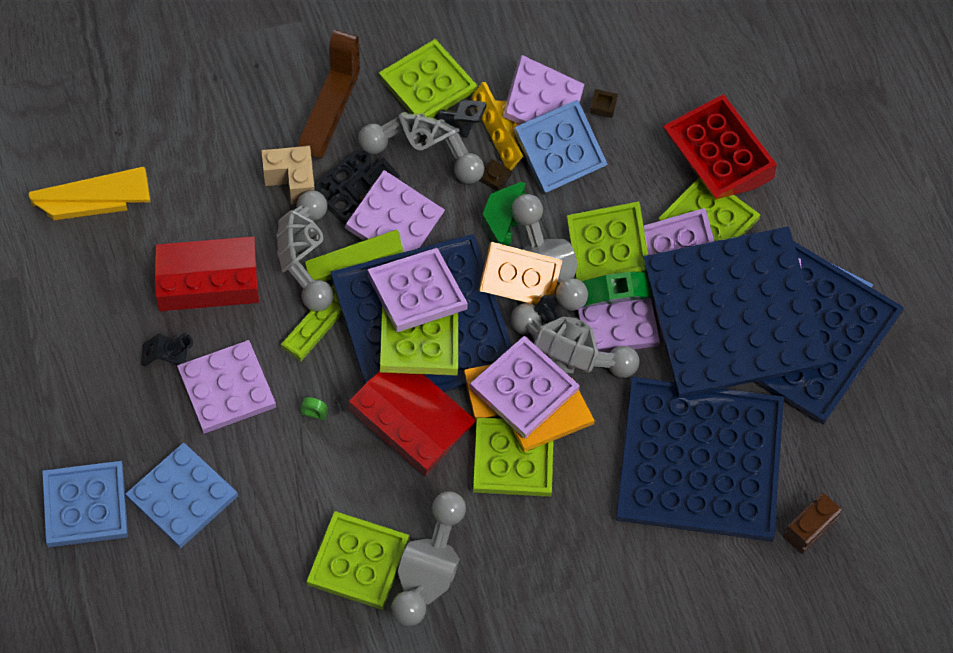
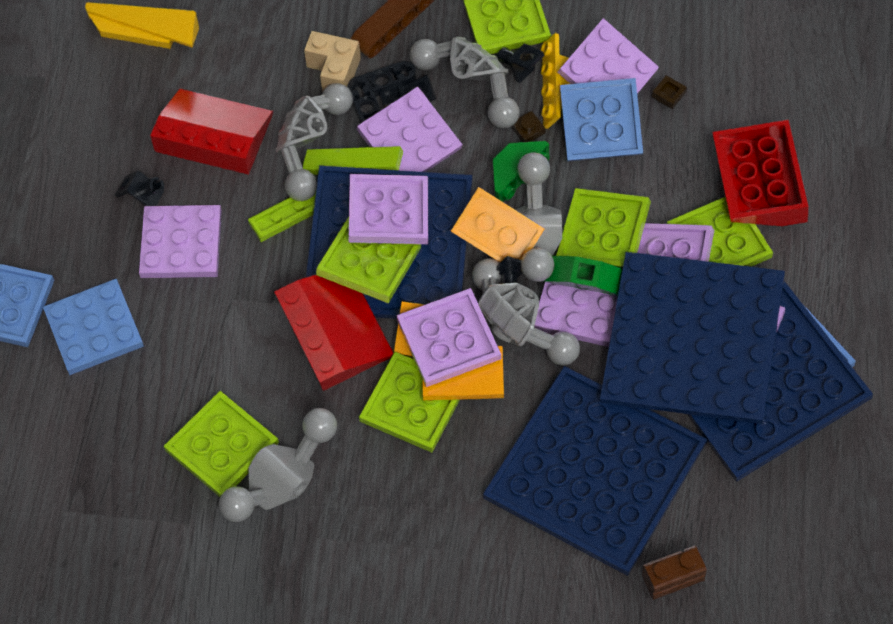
camera: 30 degrees right, 0 degrees up
(314, 408) = (249, 290): bright green tile -> none

